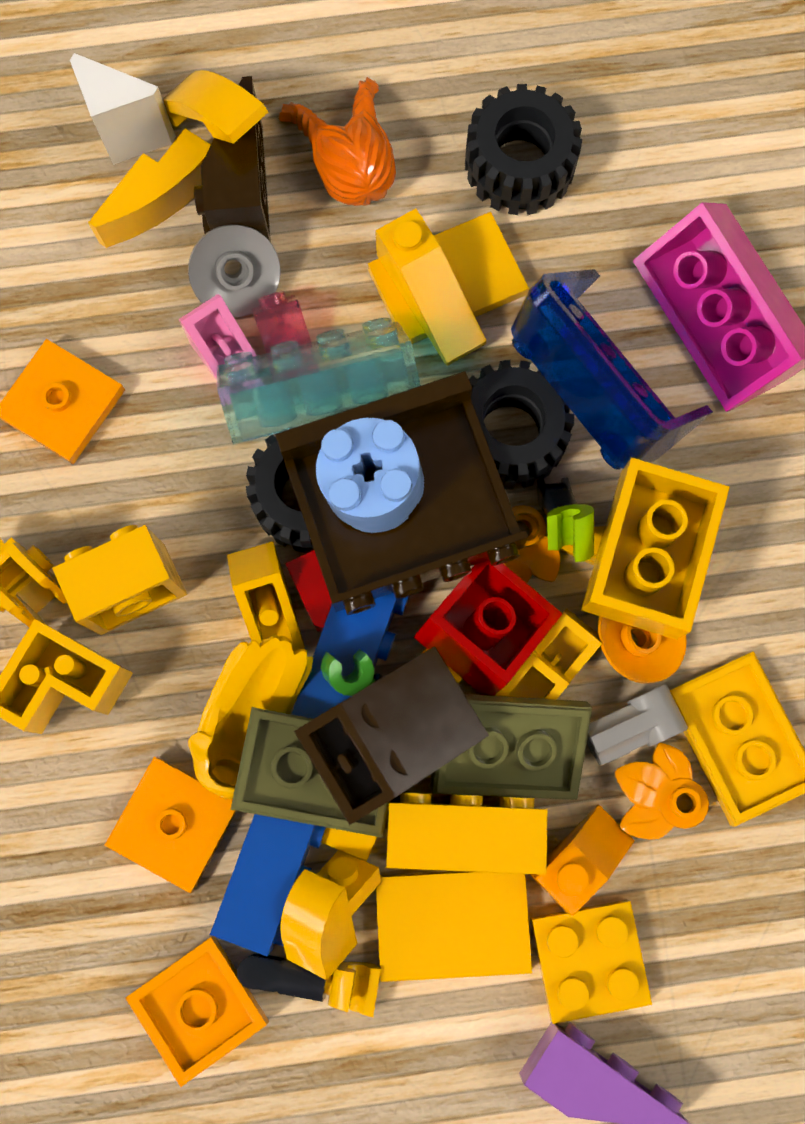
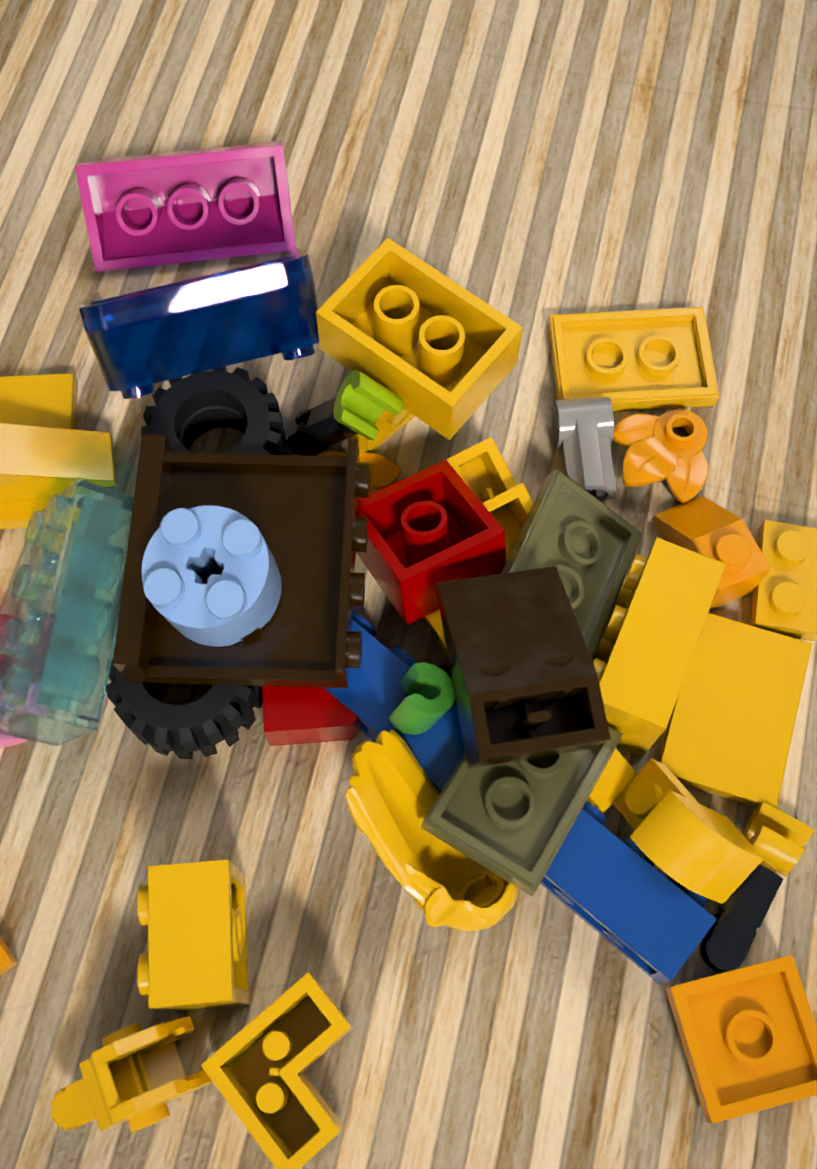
camera: 70 degrees left, 10 degrees down
(171, 825) = (518, 992): light orange plate -> none
(264, 594) = (287, 776): yellow slope -> none
(647, 663) = (511, 410): light orange dish -> none

